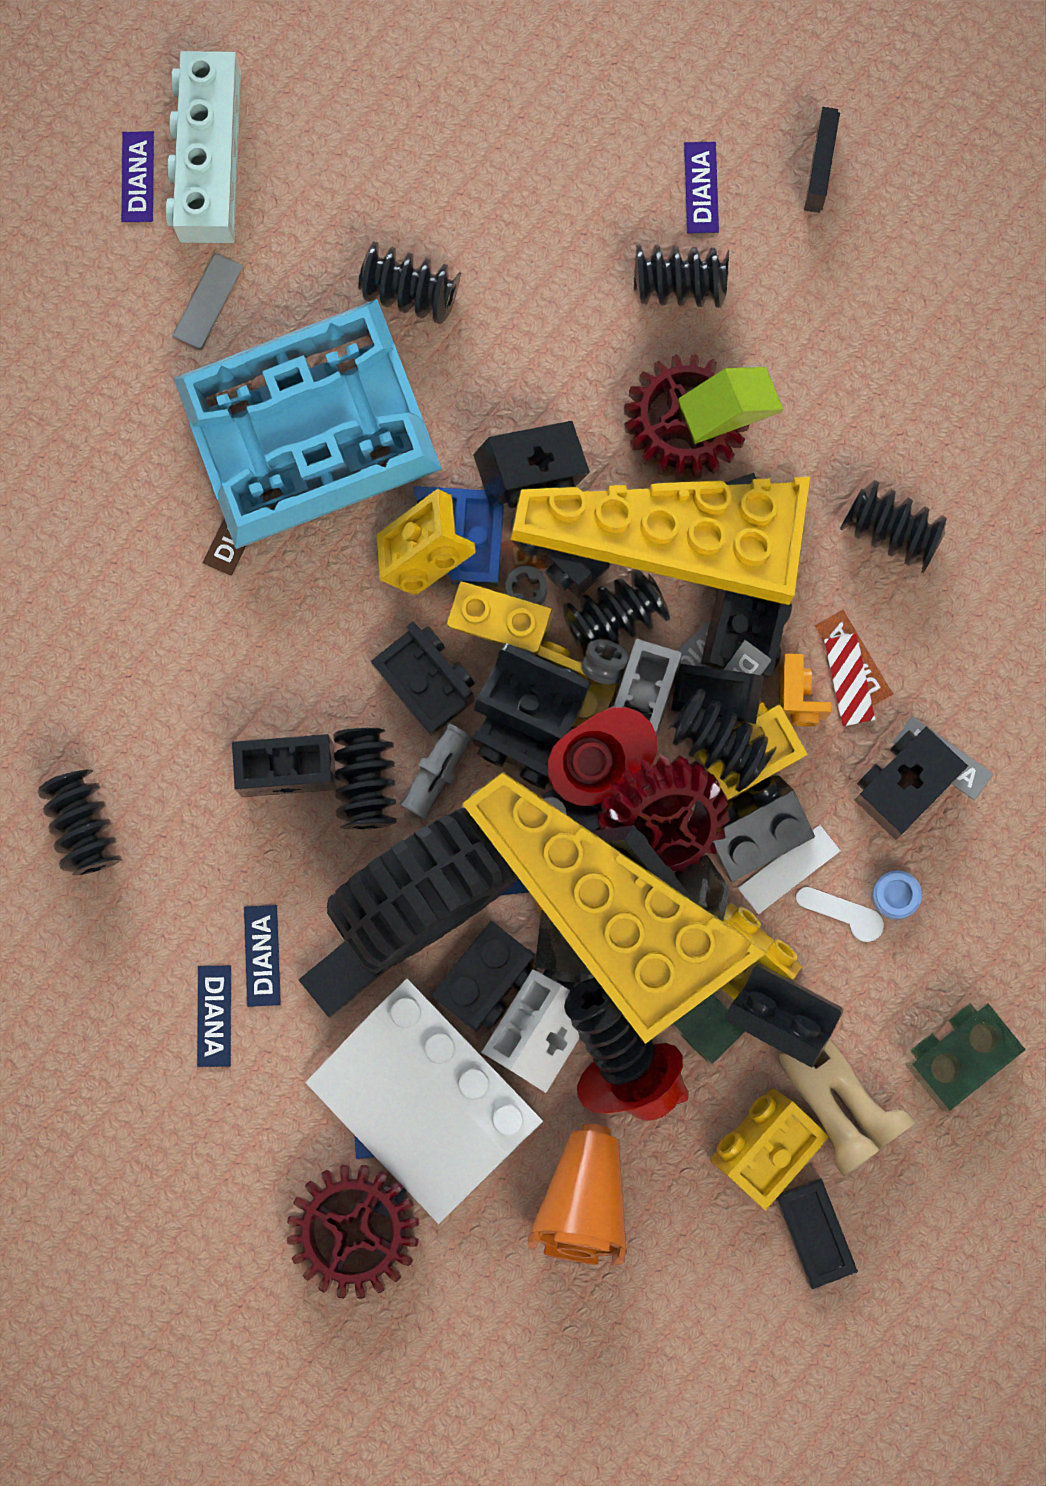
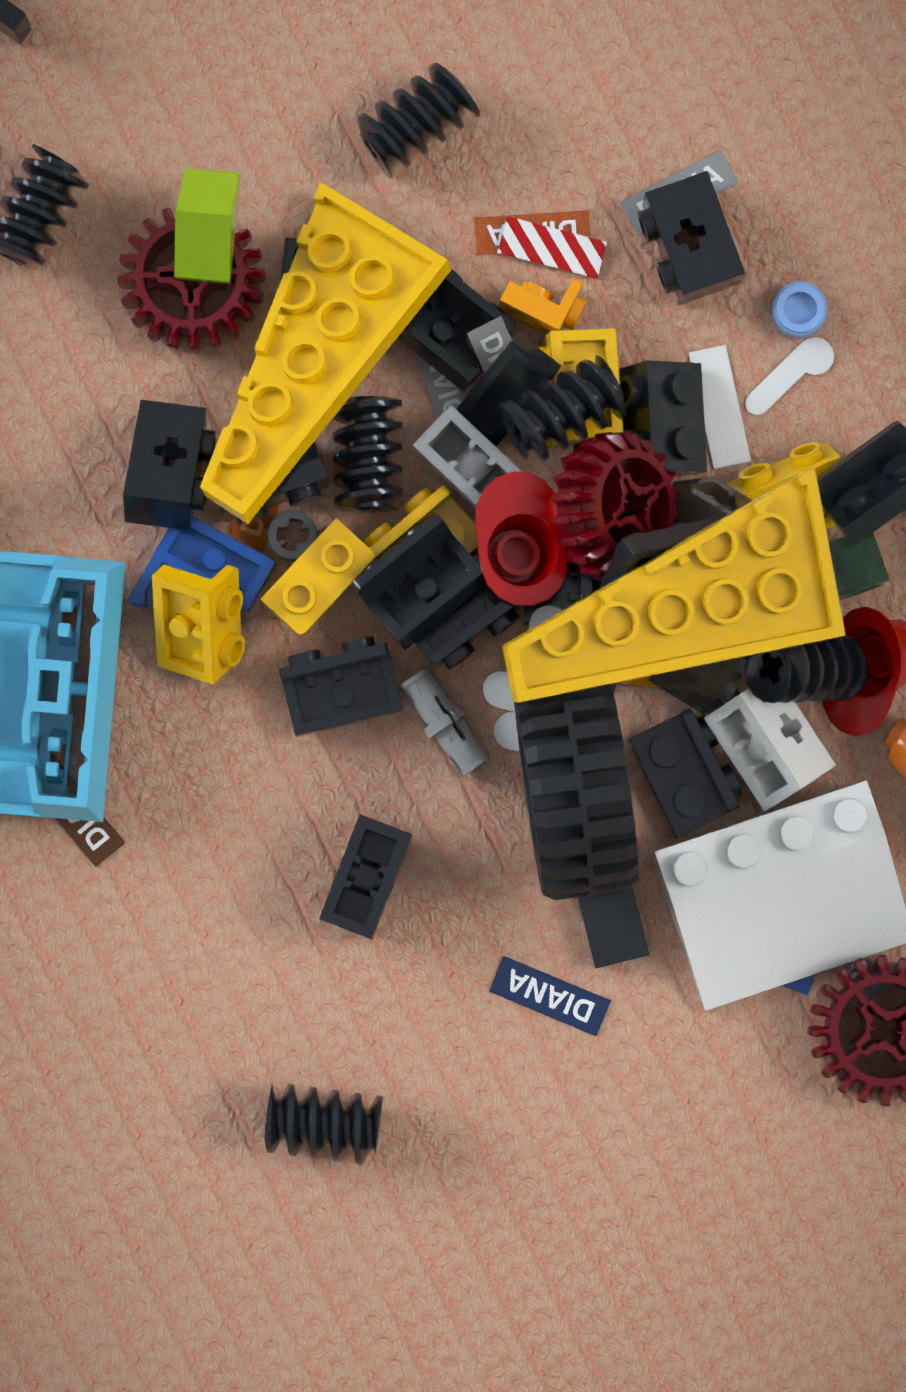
camera: 70 degrees left, 5 degrees up
(214, 1016) = (589, 1075): dark blue sticker -> none
(363, 778) = (419, 800): black piece -> none
(604, 662) = (420, 489): dark grey bush -> none

